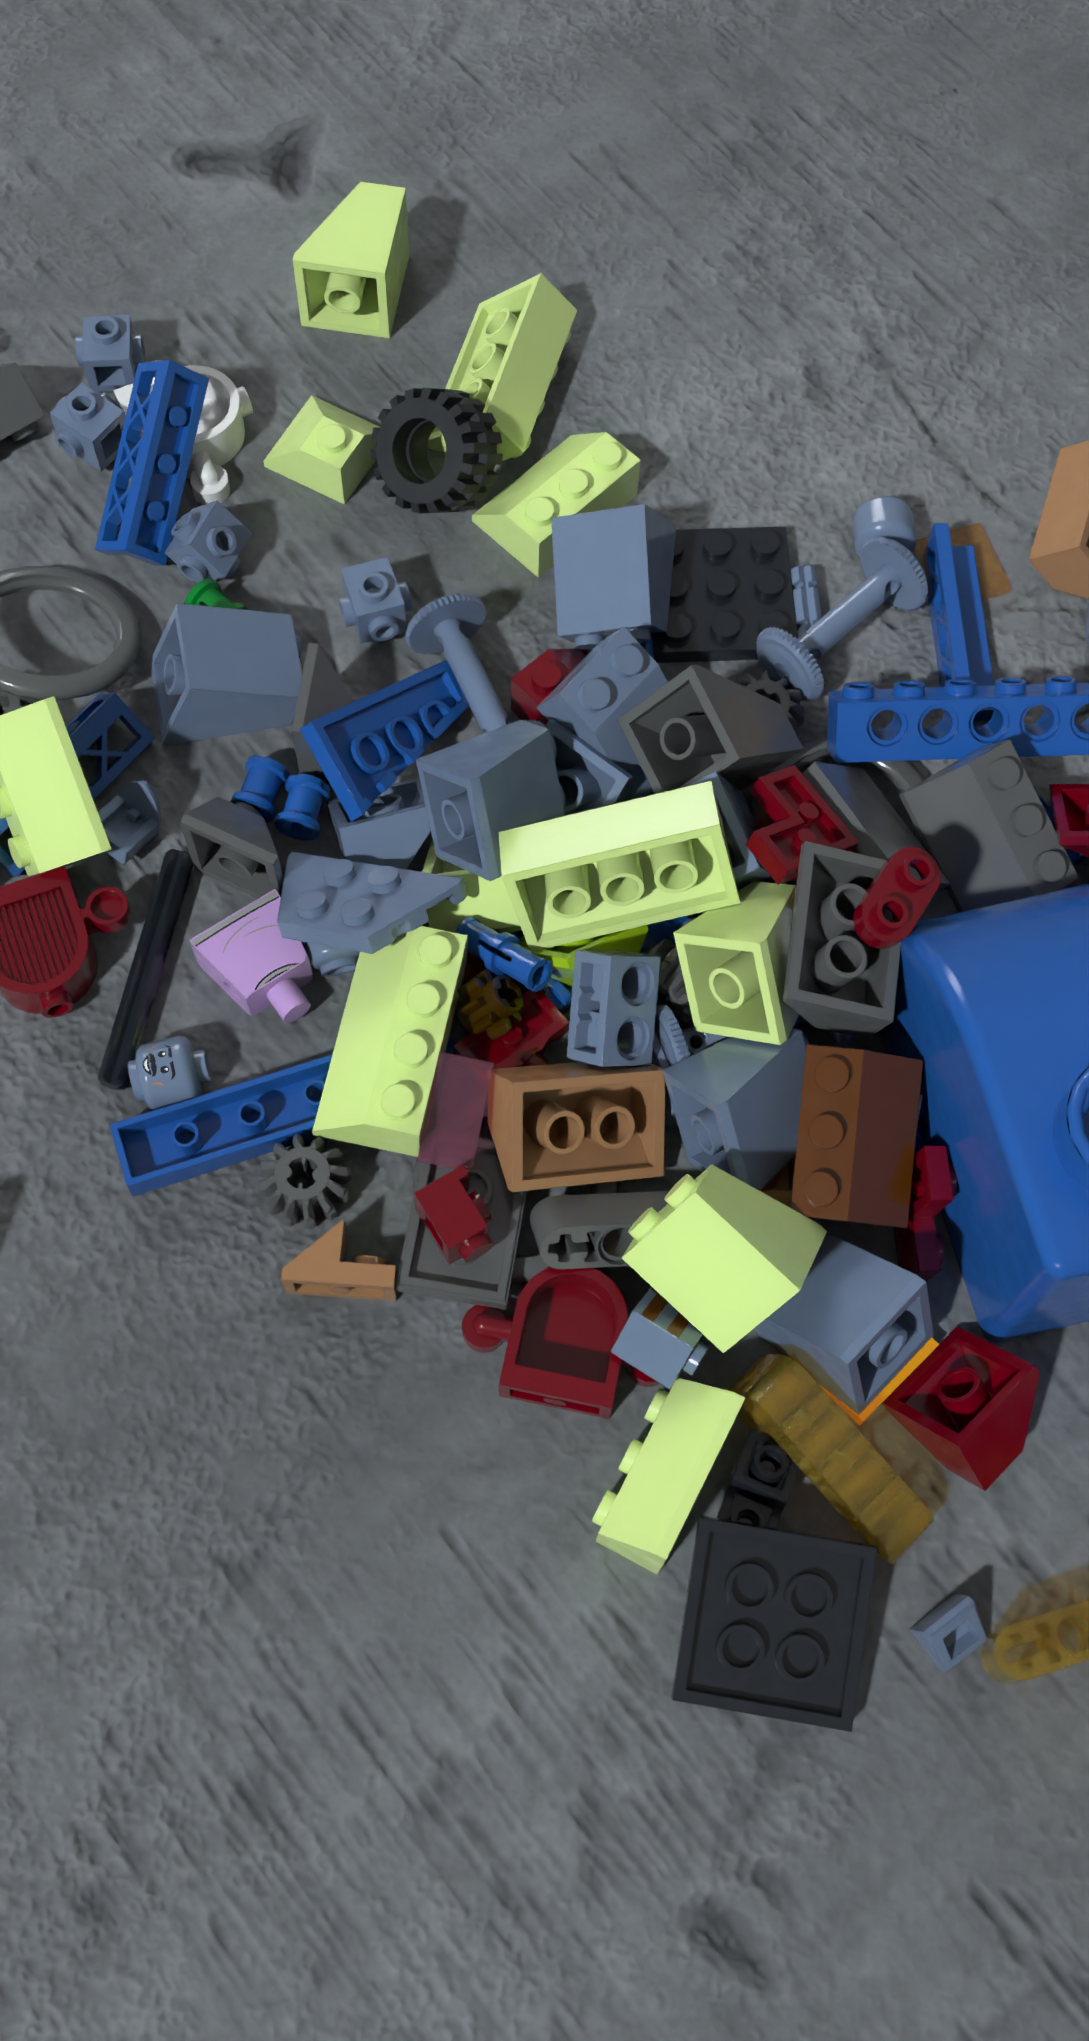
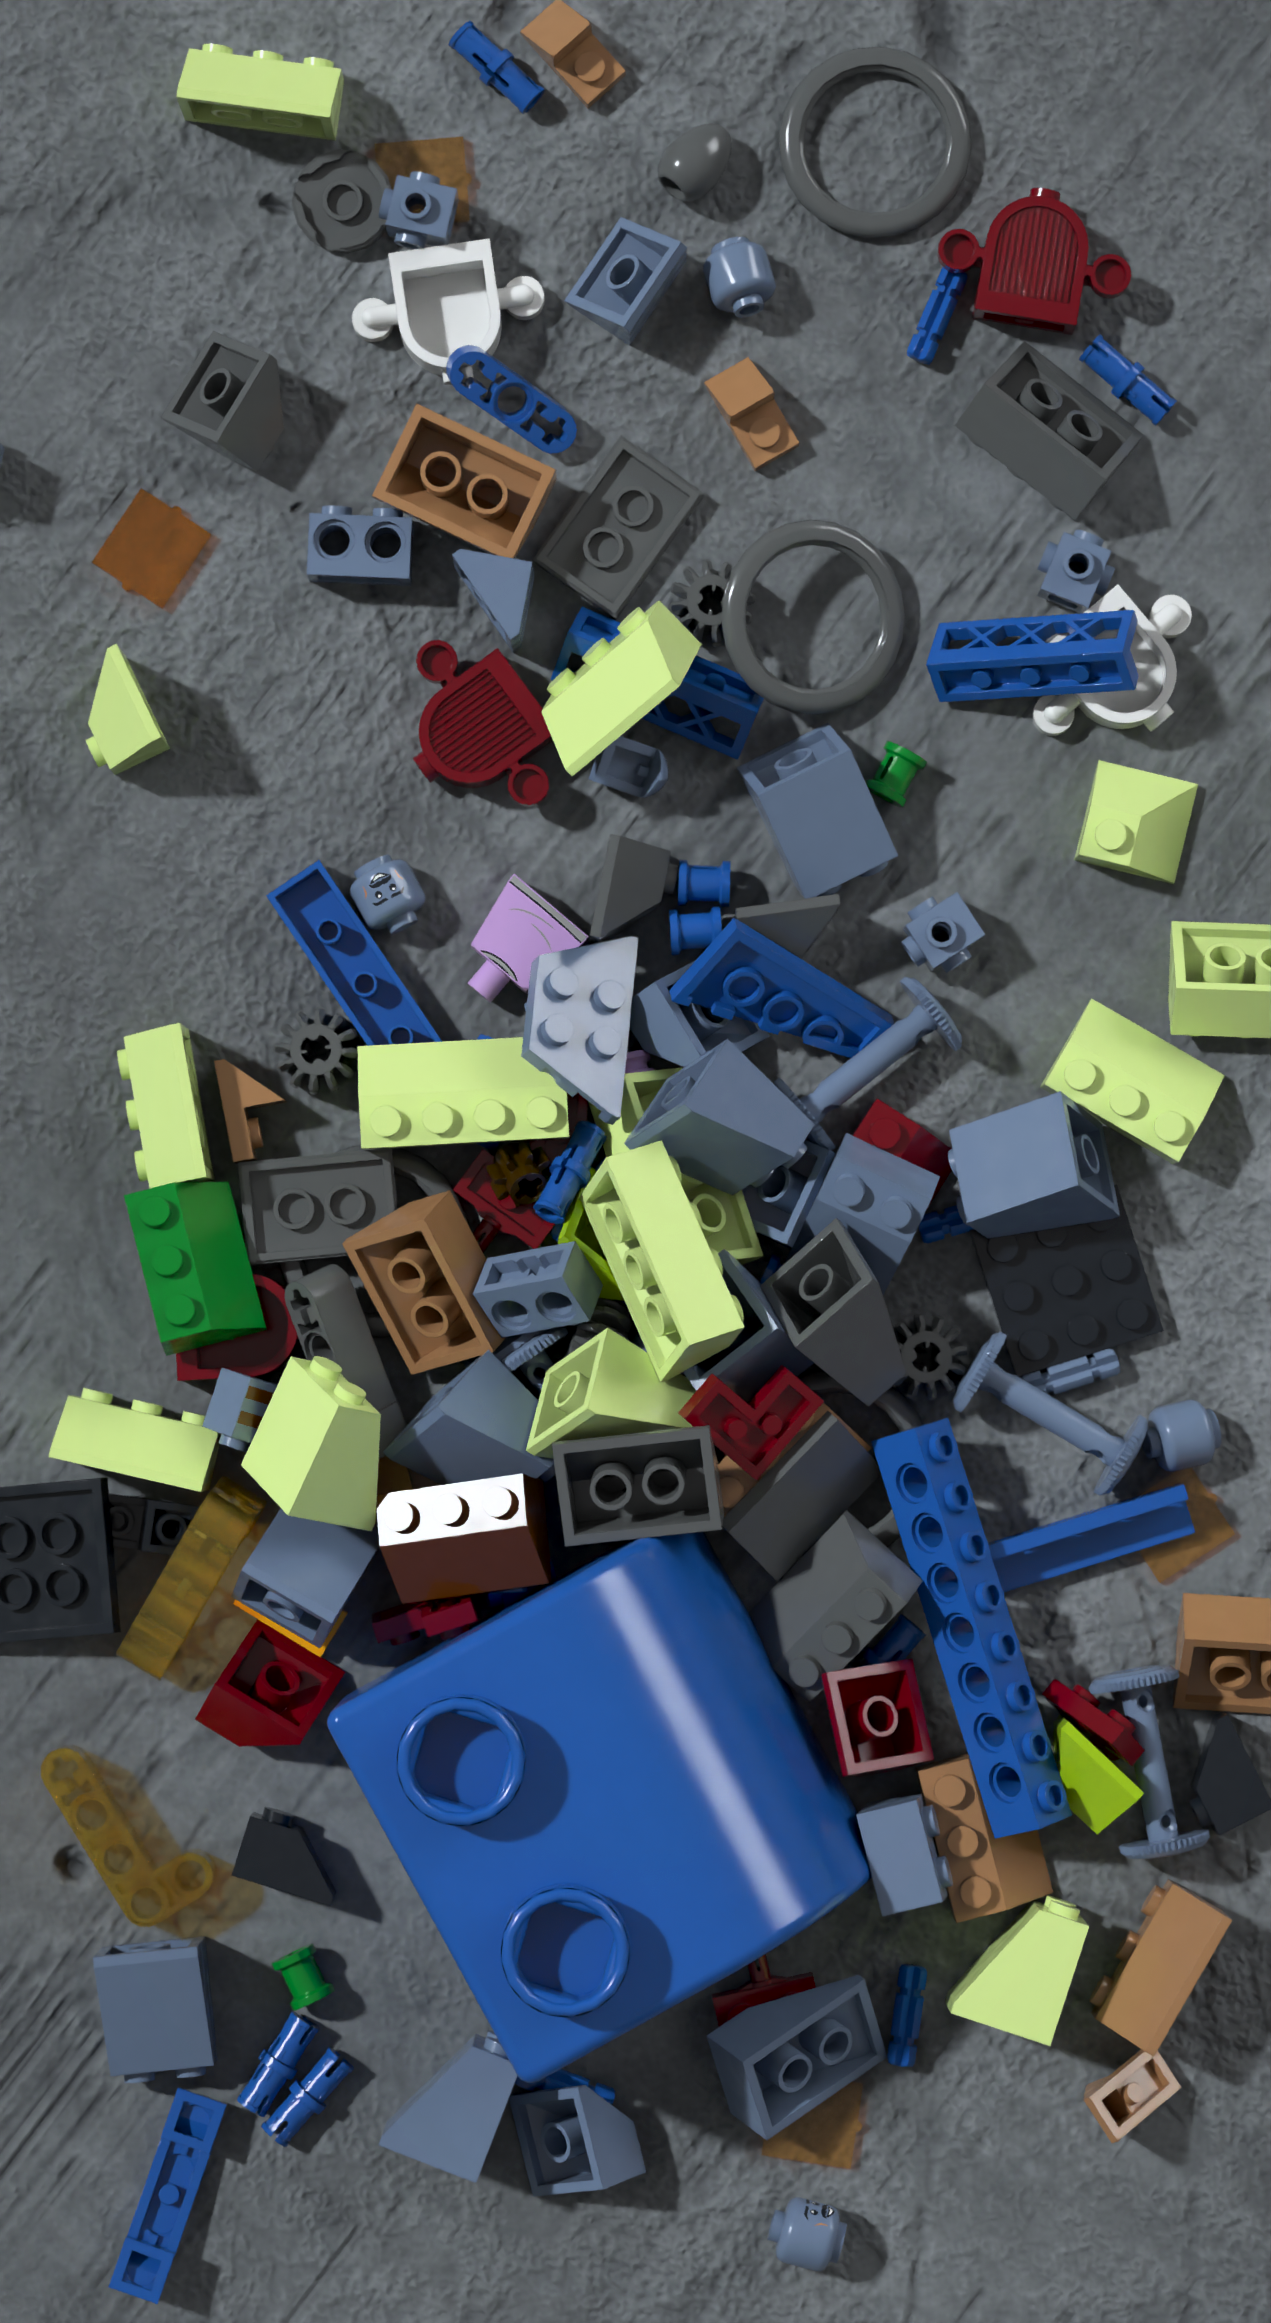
camera: 80 degrees right, 20 degrees up
(108, 343) = (1163, 571): sand blue brick -> none
(146, 969) = (489, 835): black axle -> none
(207, 543) = (963, 742): sand blue brick -> none
(313, 1343) = (166, 1106): none -> yellowish green slope
(404, 443) = (1126, 947): black tyre -> none
(454, 1217) = (304, 1200): dark red brick -> none
(455, 1111) = (402, 1172): clear pink tile -> none
(491, 1354) = (194, 1264): none -> green slope
(899, 894) = (681, 1521): dark red plate -> none
(951, 1631) = (74, 1714): sand blue slope -> none

